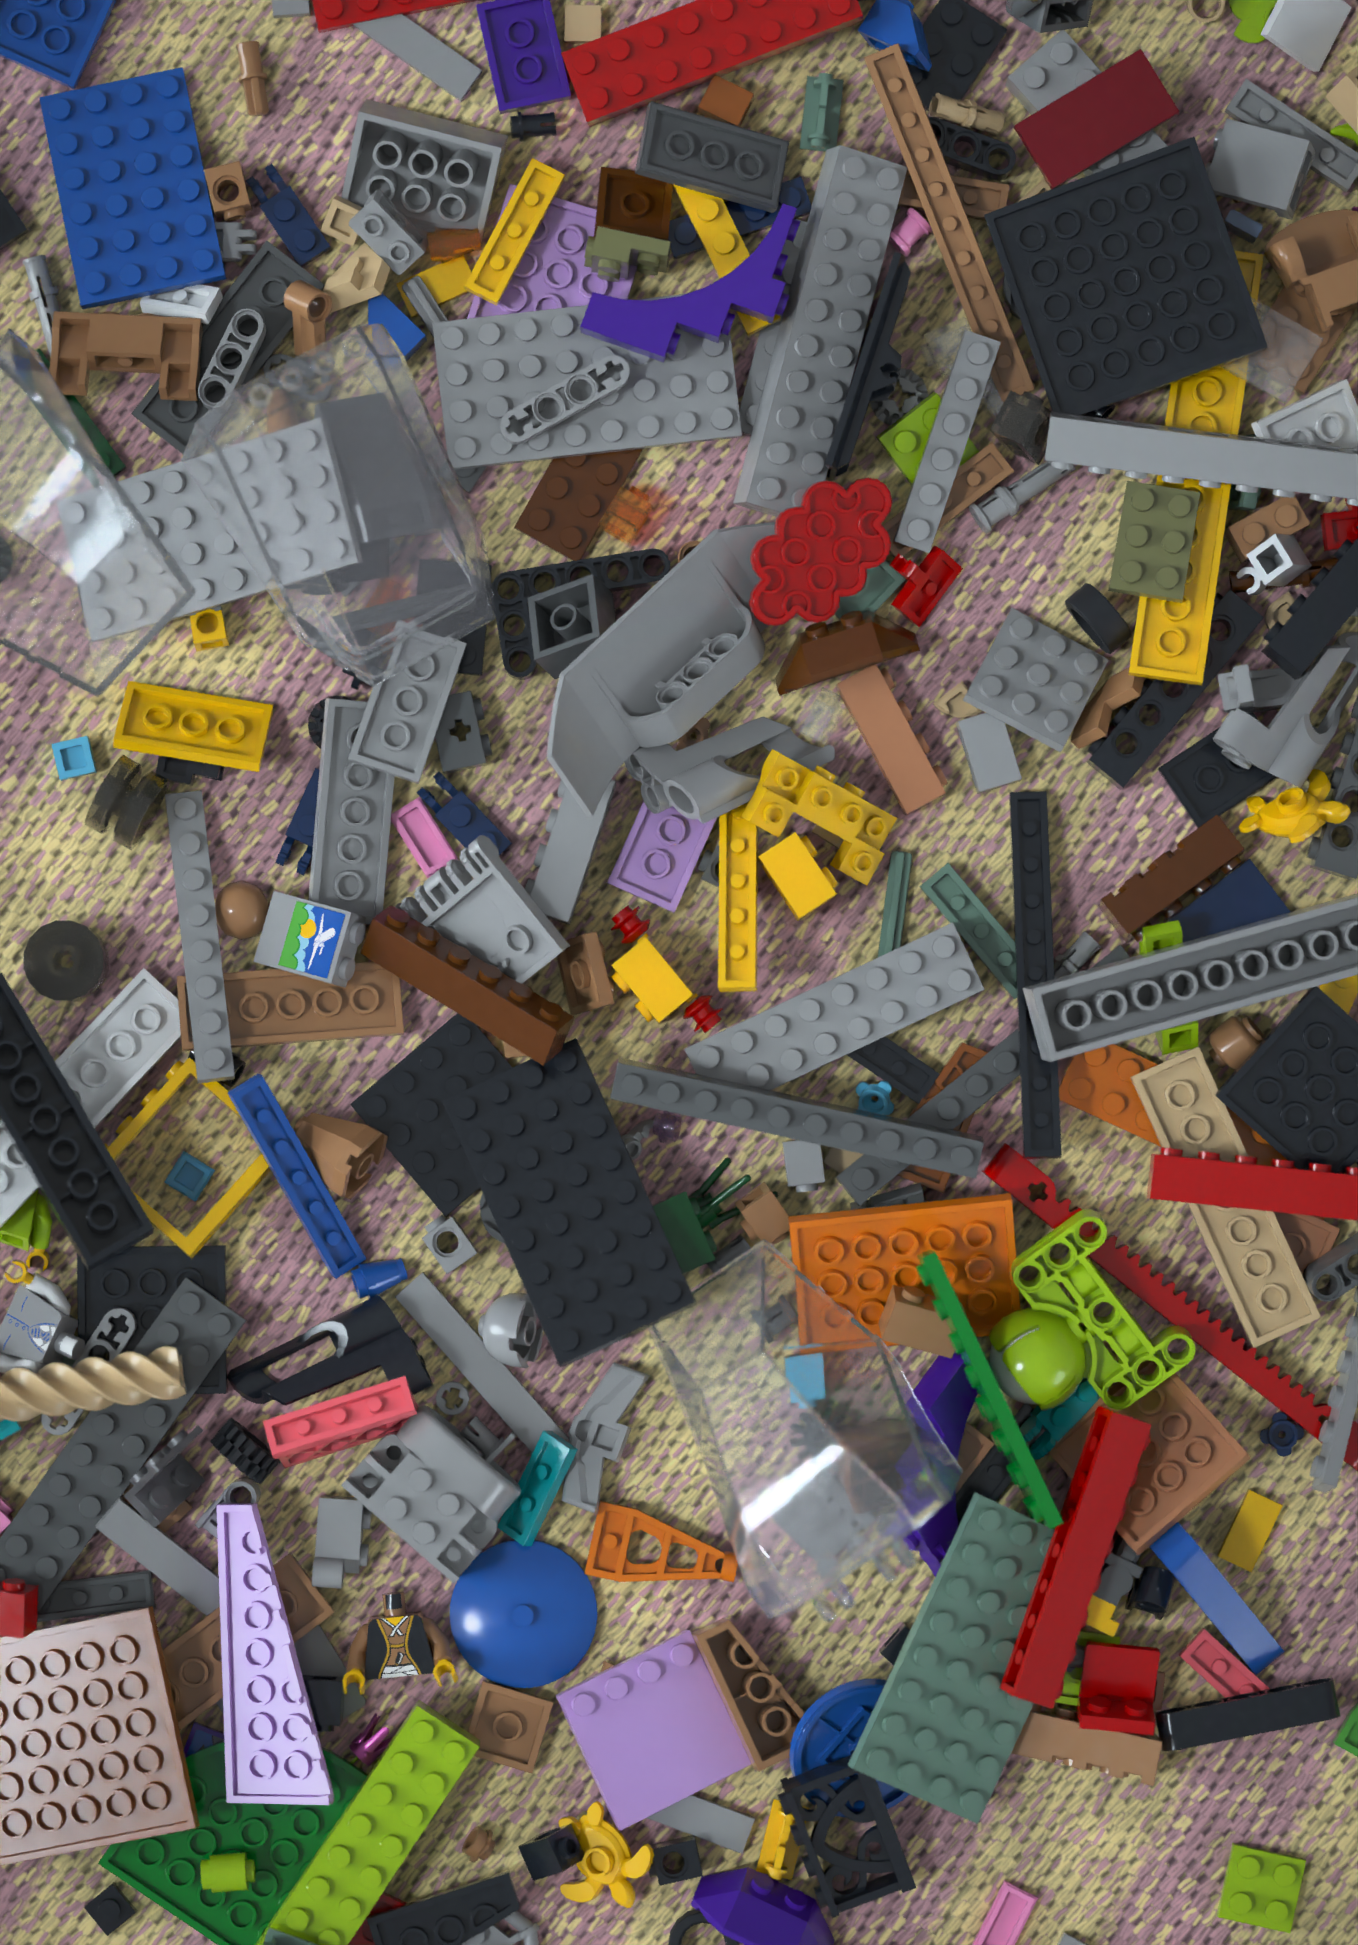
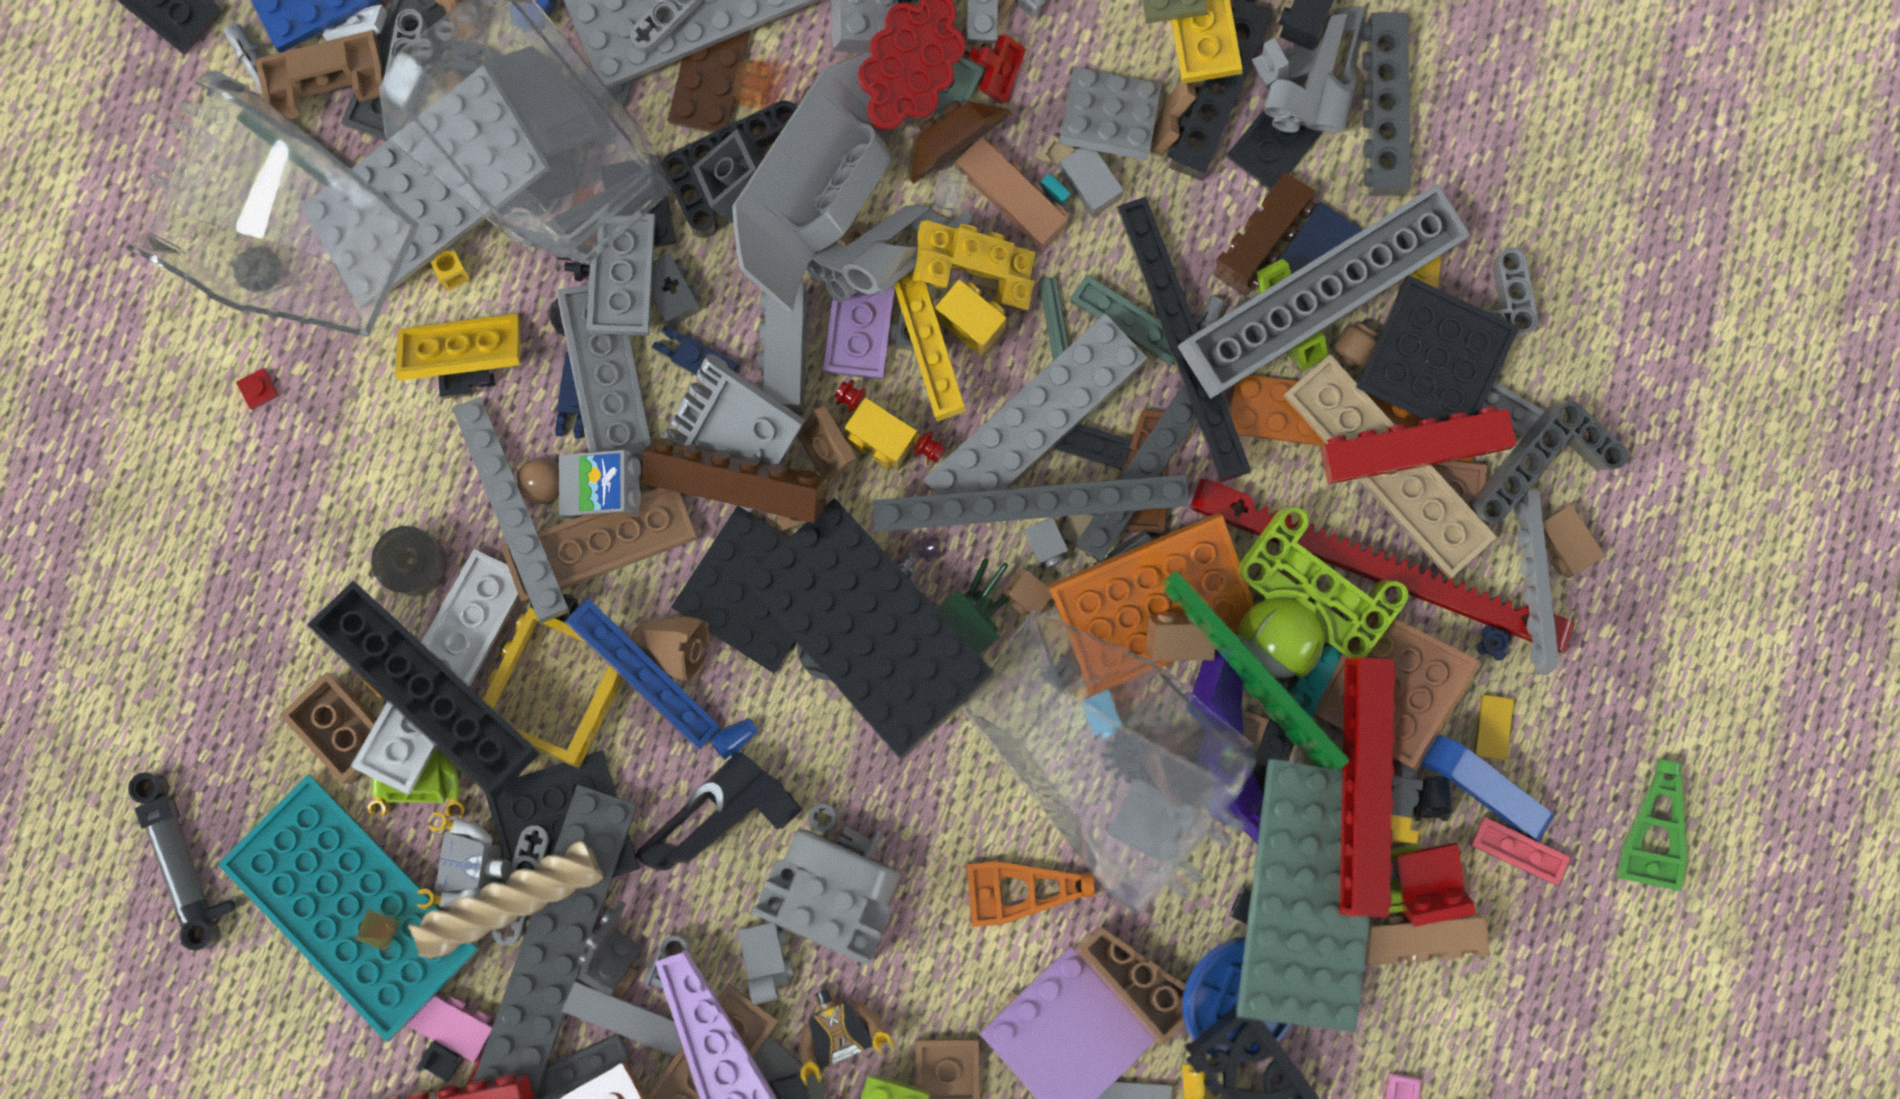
camera: 15 degrees left, 5 degrees down
(74, 758) = (372, 401): medium azure plate -> none
(126, 802) = (421, 420): clear smoke wheel -> none
(189, 1176) = (559, 704): dark azure tile -> none
(244, 1451) = (666, 911): black tyre -> none
(340, 1422) = (736, 863): coral fence -> none
(423, 836) = (664, 378): bright pink tile -> none
(465, 1247) = (792, 703): light grey brick -> none
(471, 1357) = (839, 785): light grey tile -> none
(511, 1330) = (852, 747): light grey cylinder -> none
(523, 1614) = (932, 975): blue dish -> none
(538, 1488) = (913, 867): teal plate -> none
(600, 1435) = (949, 811): light grey plate -> none
(728, 1253) = (1007, 633): dark grey pin -> none
(882, 1091) = (1090, 468): medium azure plate -> none
(943, 751) = (1055, 190): none -> teal tile
(1098, 618) = (1144, 50): black tyre -> none
(1247, 1714) = (1544, 874): black beam -> none
(1261, 1888) = (1598, 1014): lime plate -> none
(1296, 812) = (1345, 150): yellow animal -> none

